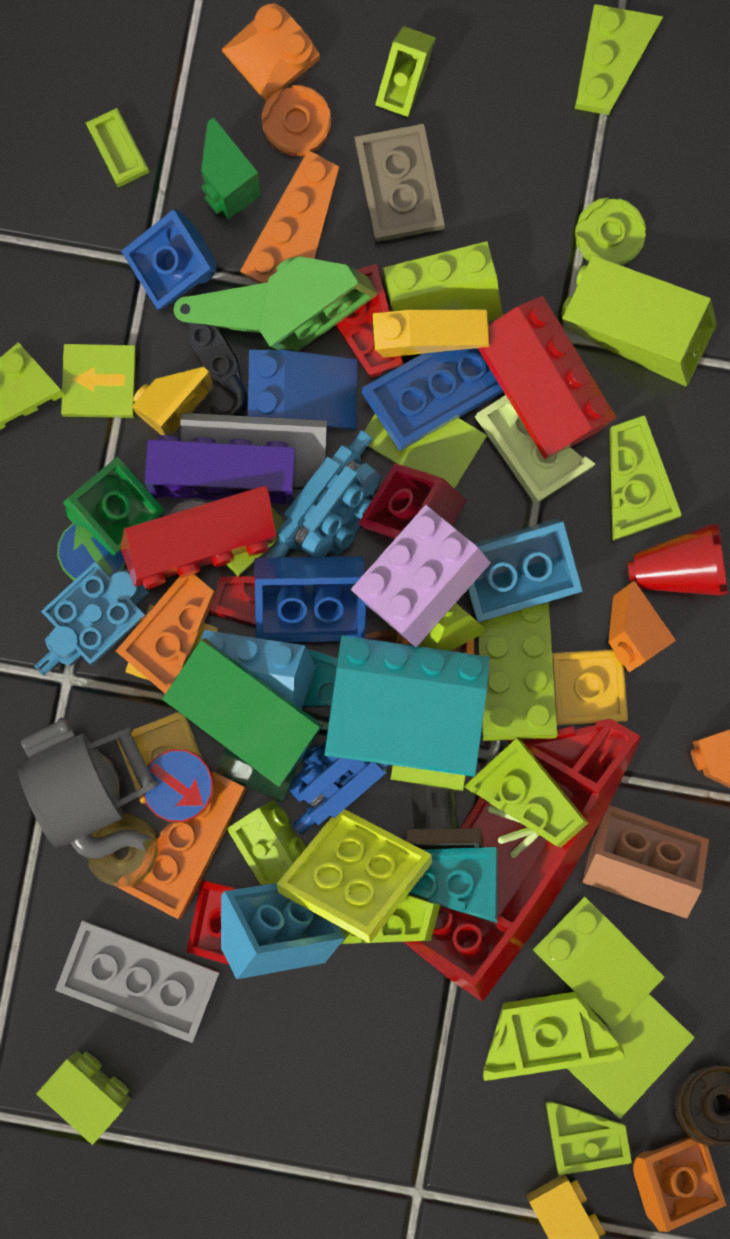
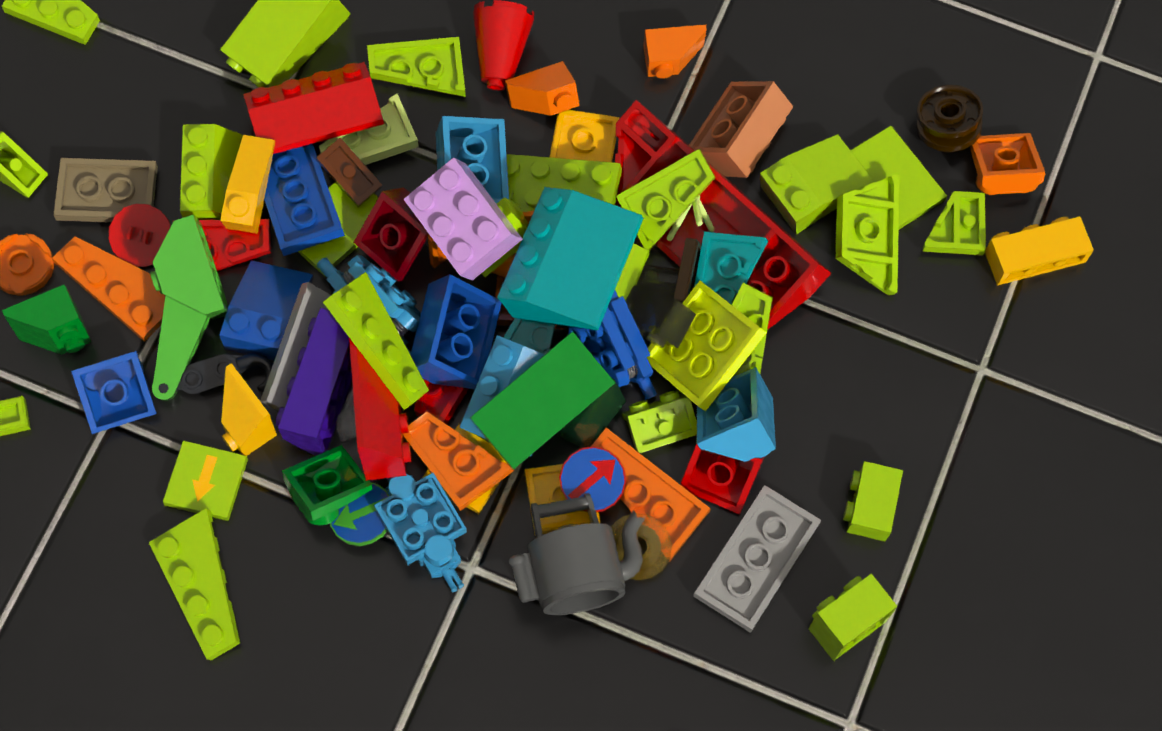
camera: 80 degrees left, 15 degrees down
(228, 1096) = (873, 501): none -> lime brick
(274, 510) = (376, 337): none -> lime wing
(355, 234) = (138, 233): none -> red piece
(379, 816) = (659, 317): none -> clear smoke brick
(475, 436) = (349, 172): none -> reddish brown plate
(610, 231) = (199, 40): lime tile -> none

